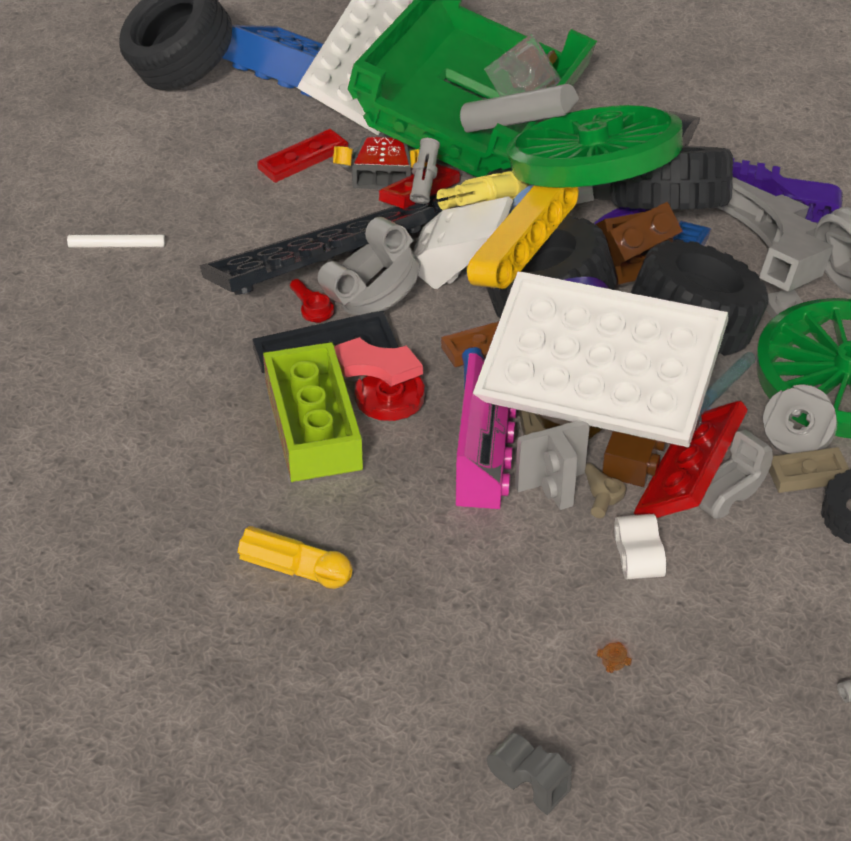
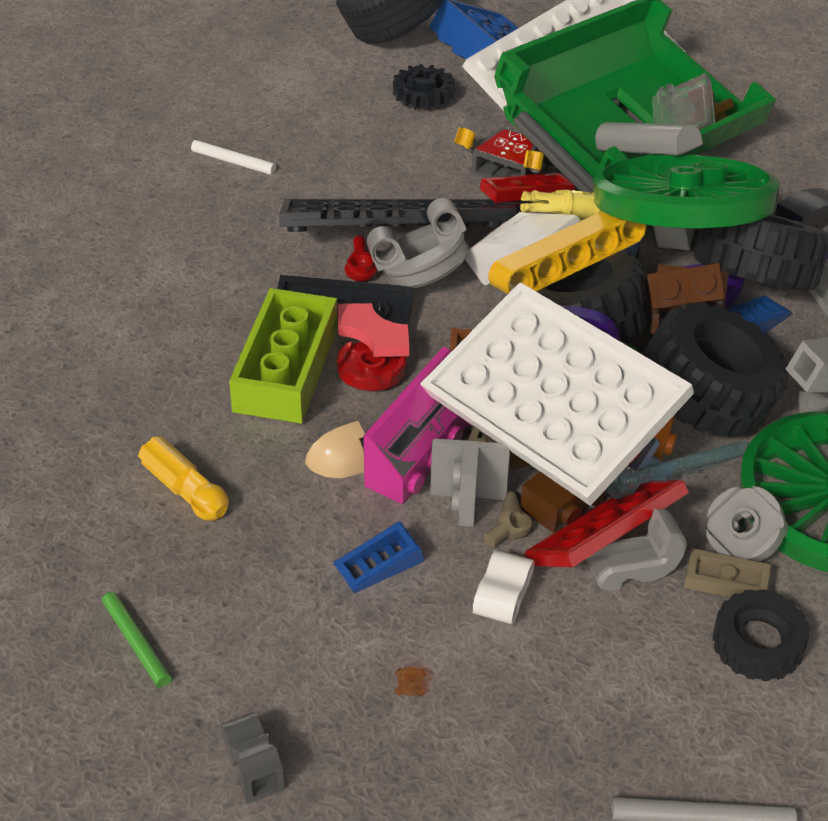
camera: 25 degrees right, 0 degrees up
(256, 118) = (423, 86): none -> black gear
(301, 155) = (442, 130): red tile -> none
(351, 716) = (136, 639): none -> bright green bar
(419, 483) = (338, 452): none -> tan brick
(427, 153) = (527, 171): light grey pin -> none
(446, 151) = (554, 152): none -> dark grey axle
(532, 540) = (396, 563): none -> blue slope

